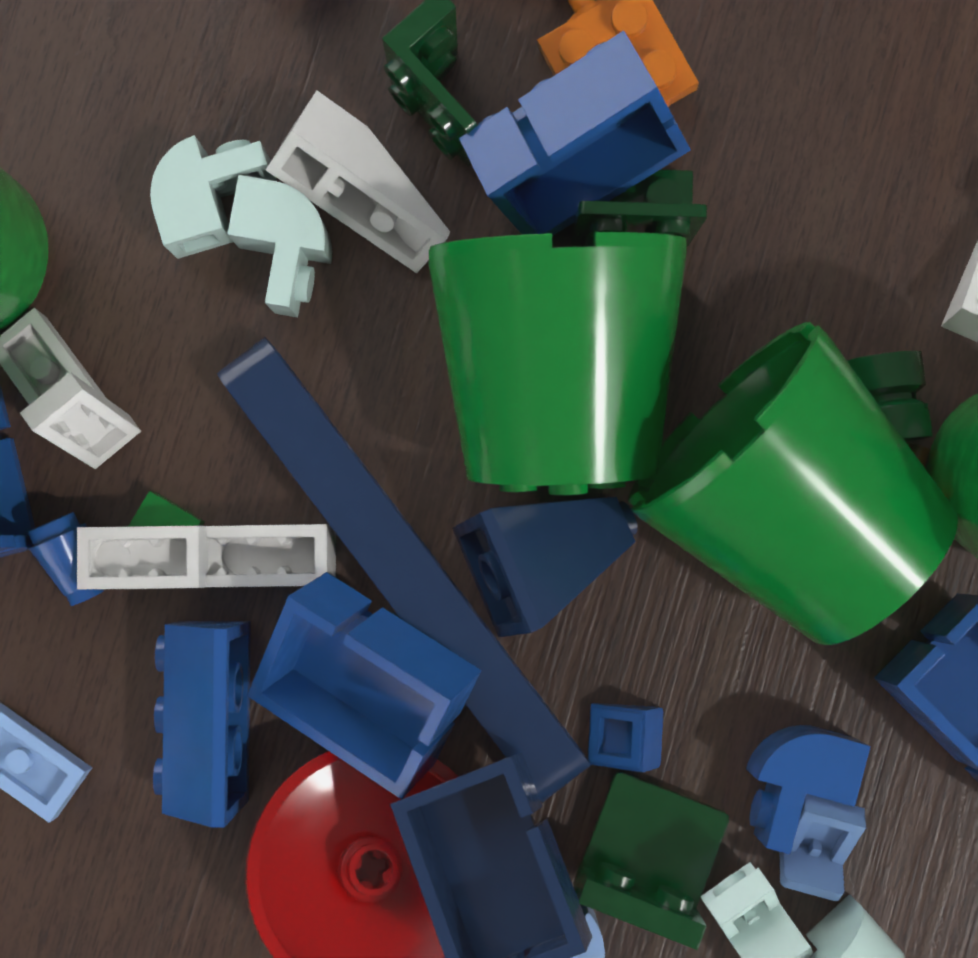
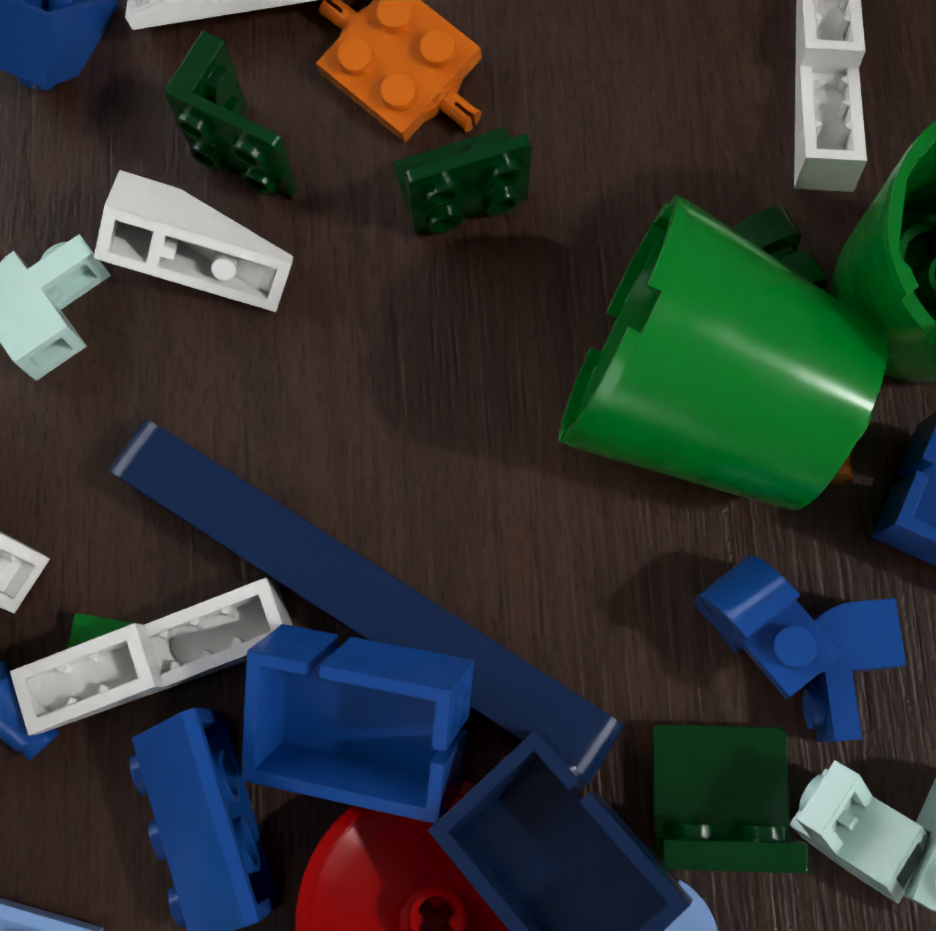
camera: 15 degrees left, 10 degrees down
(283, 223) = (132, 309): light aqua brick -> none
(541, 556) = (488, 529): dark blue slope -> none
(559, 355) = (434, 312): green cone -> none
(575, 139) = (382, 112): blue piece -> none
(625, 736) = (648, 687): blue slope -> none
(749, 728) = (760, 613): none -> blue brick
(821, 847) = (890, 722): medium blue bracket -> none

